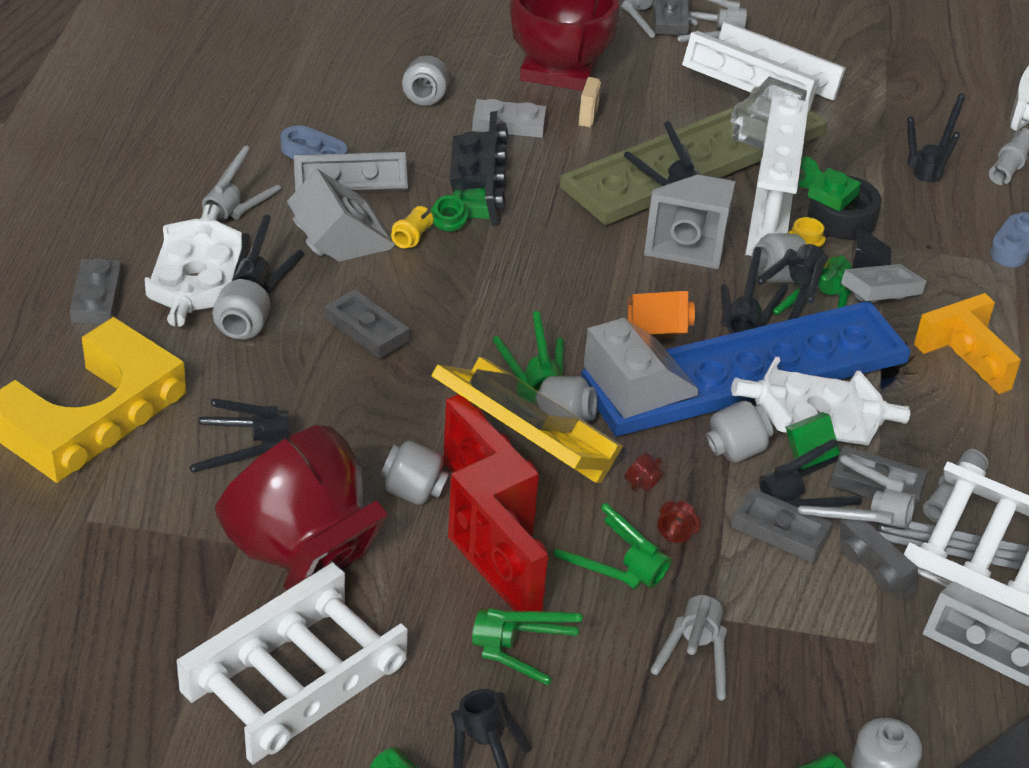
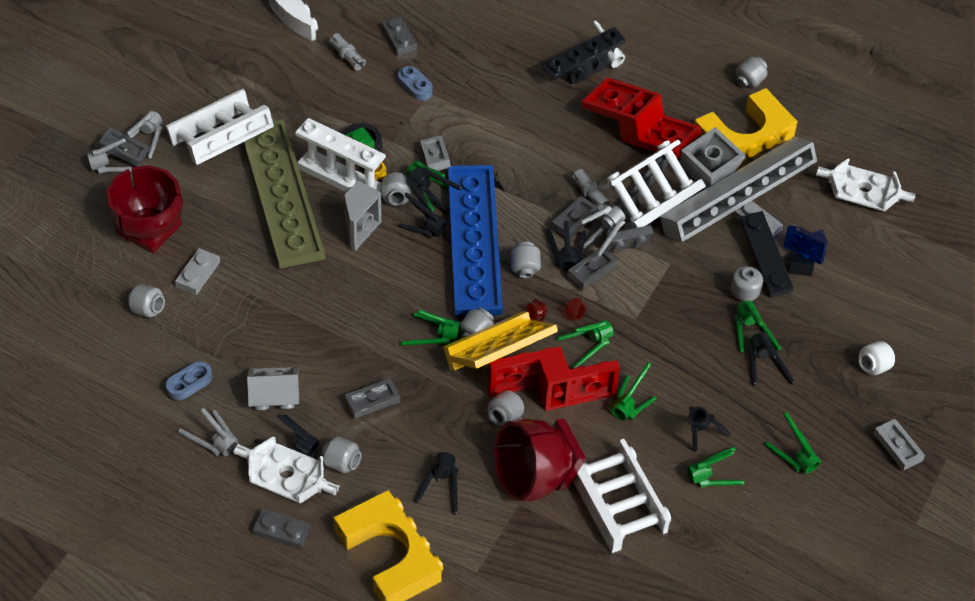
camera: 70 degrees left, 10 degrees up
(357, 171) = (226, 368): light grey tile -> none
(407, 231) = (296, 355): yellow pin -> none
(449, 206) = (288, 324): green plate -> none
(475, 202) = (273, 316): green tile -> none
(480, 162) = (250, 300): black bracket -> none
(523, 401) = (501, 336): clear smoke tile -> none
(589, 102) = (208, 224): tan tile -> none
(634, 368) = (474, 285): light grey slope -> none
(662, 313) = (433, 259): orange slope -> none
(678, 170) = (316, 203): black plant -> none
(700, 627) = (646, 323): light grey plant -> none
(752, 114) = (276, 142): clear brick -> none
(792, 397) = (522, 208): white plate -> none
(812, 433) = (546, 231): green tile -> none
(869, 250) = (402, 151): black slope -> none
(932, 159) = (336, 88): black plant -> none
(967, 333) = (494, 137): light orange bracket -> none

